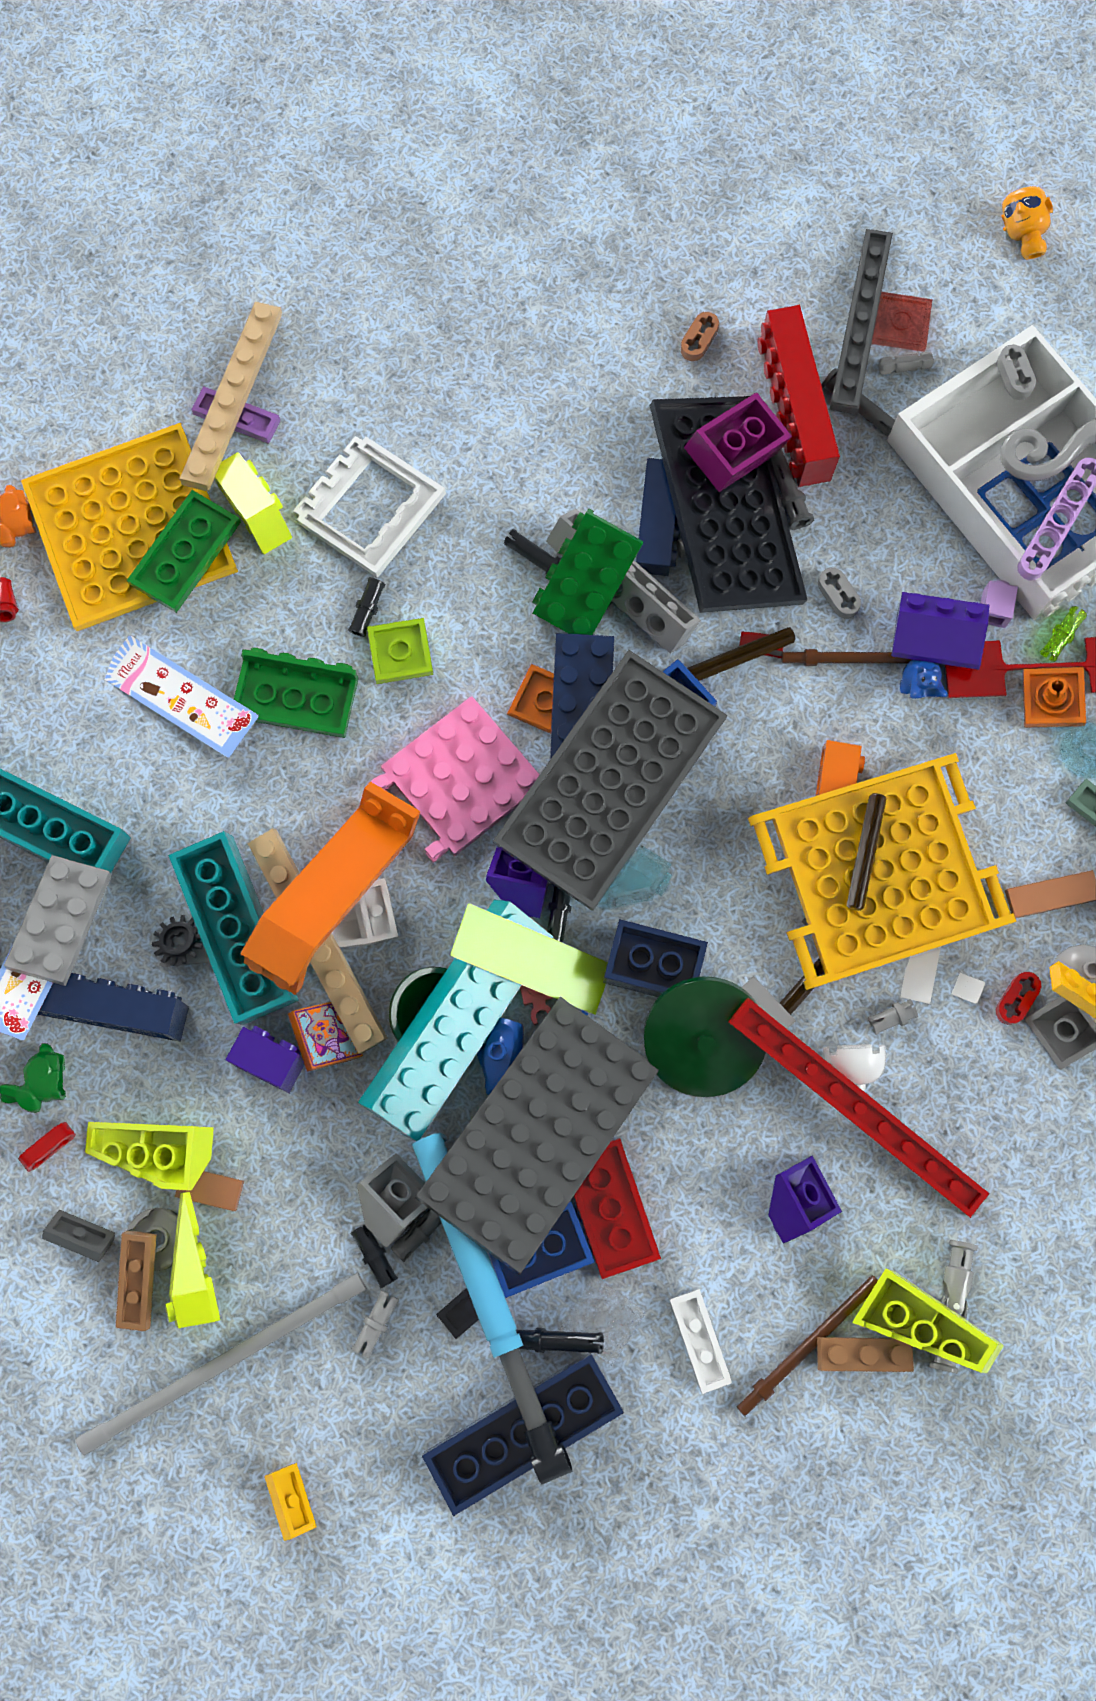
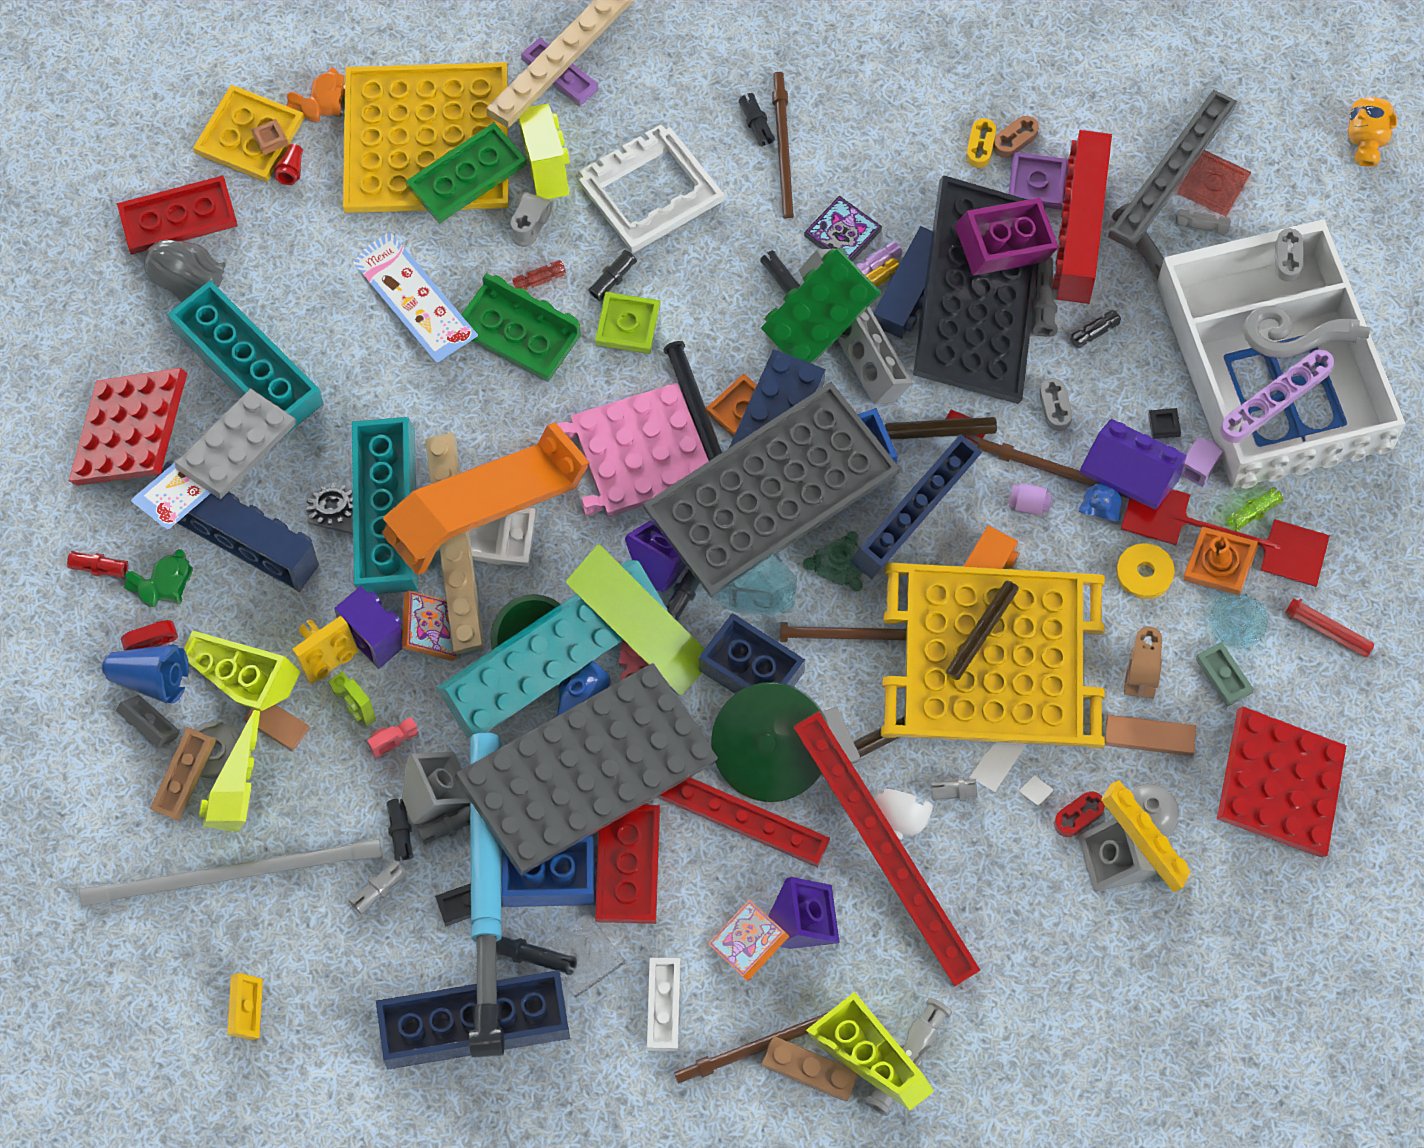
camera: 20 degrees right, 10 degrees down
(61, 1185) = (149, 671): none -> blue cone
(228, 1098) = (324, 648): none -> yellow plate
(263, 576) = (529, 219): none -> light grey piece
(281, 1143) = (358, 702): none -> lime hinge
(295, 631) = (540, 275): none -> clear red axle
(325, 1168) = (387, 739): none -> coral plate
(446, 400) = (756, 119): none -> black pin
(461, 373) = (780, 100): none -> reddish brown bar
(497, 711) = (693, 398): none -> black axle
(571, 485) = (843, 227): none -> tile
(618, 502) = (892, 250): none -> lavender axle
(625, 517) = (881, 274): none -> yellow axle
(674, 353) = (975, 142): none -> yellow beam
(675, 913) = (840, 633): none -> reddish brown bar
(696, 824) = (834, 563): none -> clear green rock
(712, 1120) = (748, 820): none -> red plate
(736, 371) = (1039, 178): none -> medium lavender tile
(753, 746) = (915, 506): none -> dark blue brick
(759, 1248) = (748, 940): none -> tile
(847, 504) = (1095, 329): none -> black axle
(853, 697) = (1030, 499): none -> lavender brick
(946, 577) = (1164, 423): none -> black tile
(990, 715) = (1141, 586): none -> yellow tile
(1031, 832) = (1144, 664): none -> medium nougat piece

